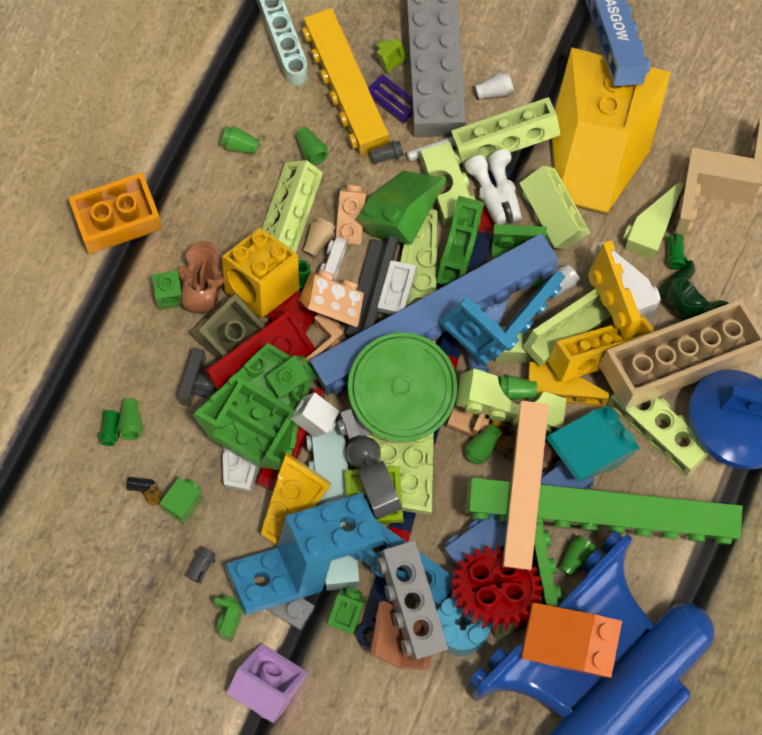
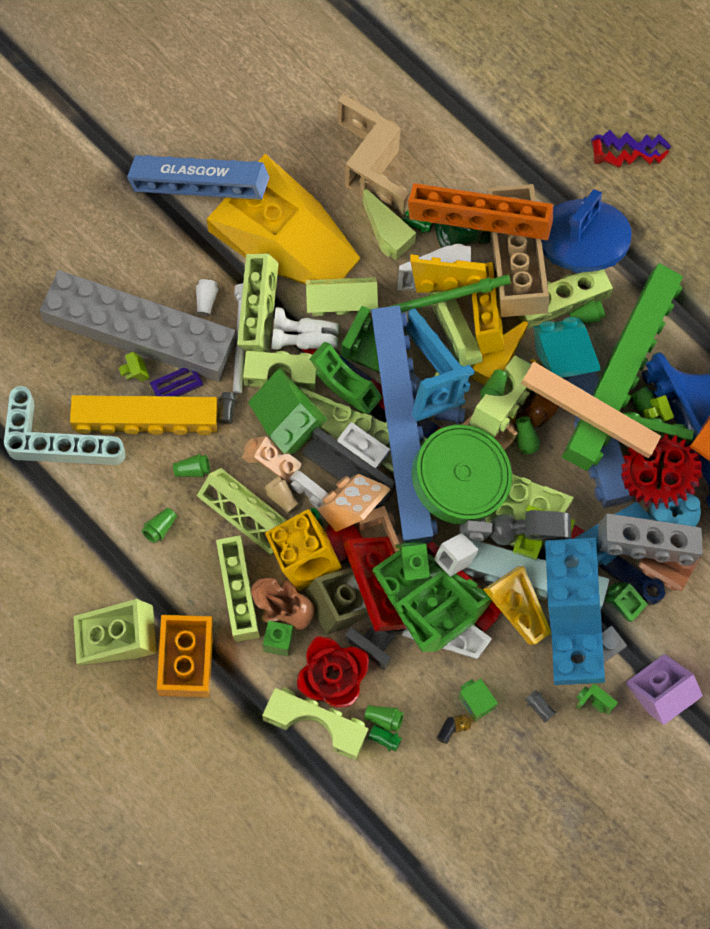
camera: 70 degrees left, 0 degrees up
(96, 389) = (286, 709): none -> yellowish green arch
(115, 145) = (115, 633): none -> yellowish green slope
(138, 338) = (326, 655): none -> red brick
(211, 225) = (237, 589): none -> yellowish green brick
(570, 565) = (659, 409): none -> lime tile
(615, 328) = (484, 285): none -> bright green bar
(654, 459) = (589, 312): none -> bright green cone
(700, 295) = (480, 211): none -> orange brick

